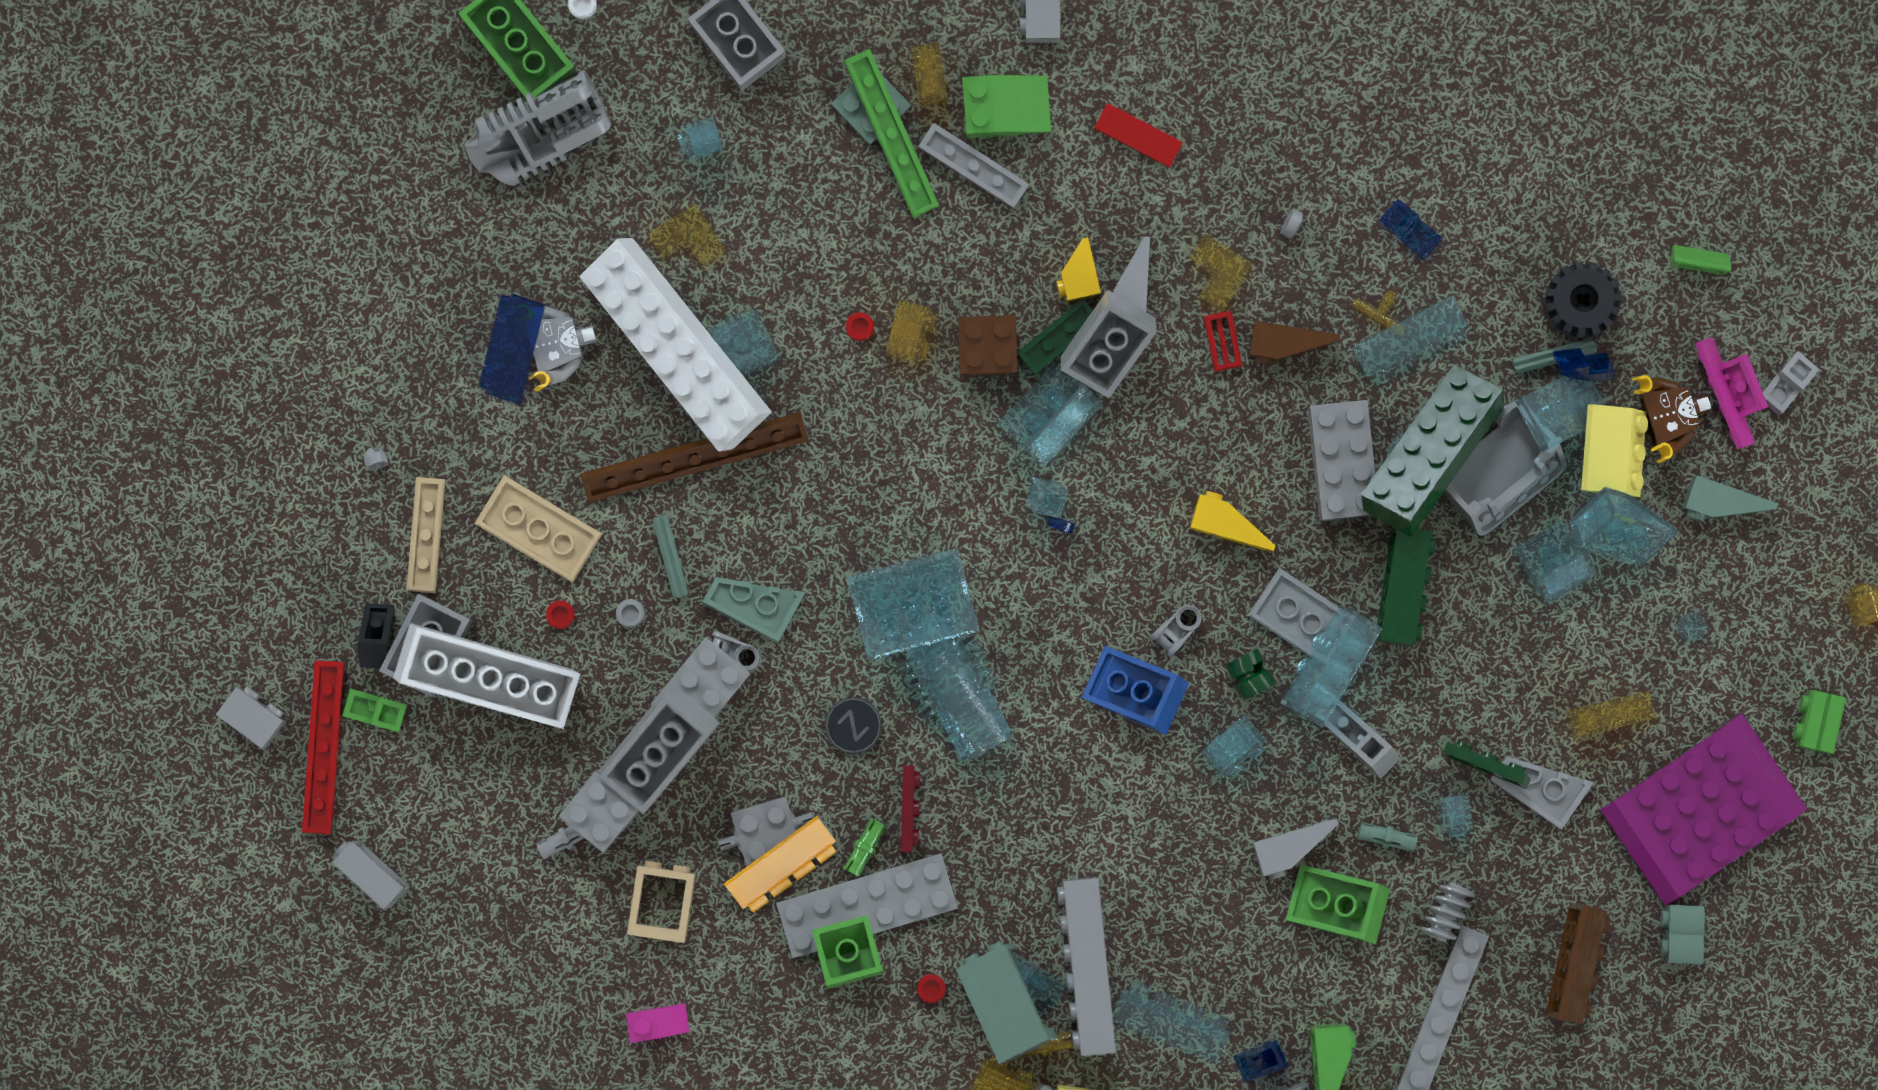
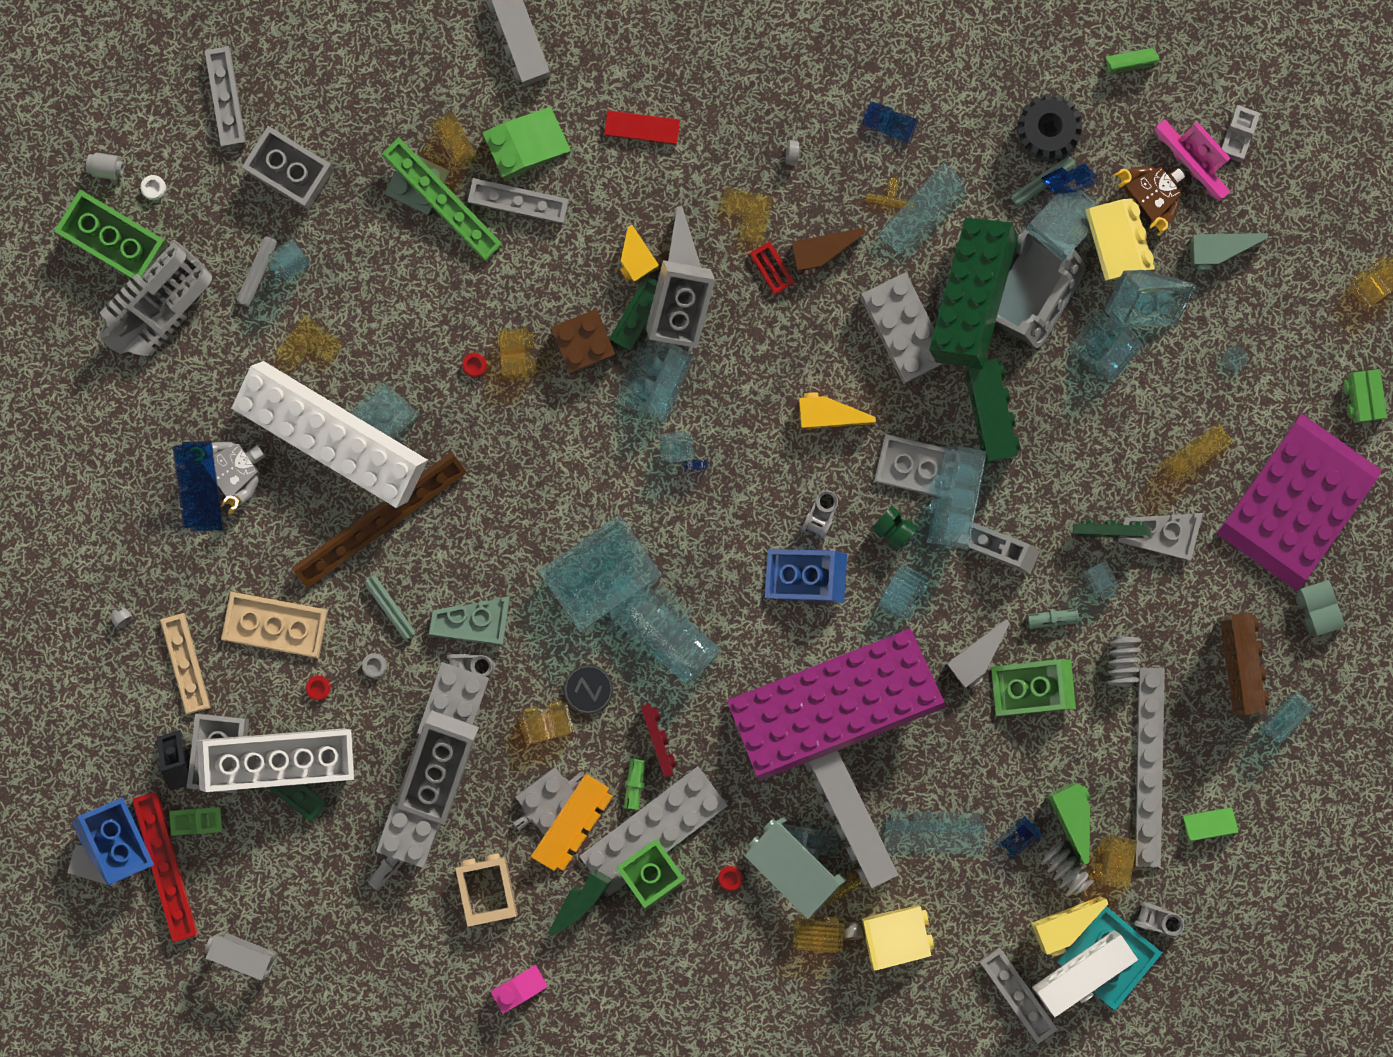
camera: 15 degrees left, 0 degrees up
(277, 699) = (112, 841): none -> blue slope
(497, 728) = (301, 799): none -> dark green plate
(660, 137) = (256, 271): none -> light grey axle
(760, 952) = (580, 901): none -> dark green slope
(794, 745) = (546, 723): none -> clear yellow brick
(1116, 842) = (835, 704): none -> magenta plate
(1602, 1038) = (1286, 717): none -> clear light blue brick

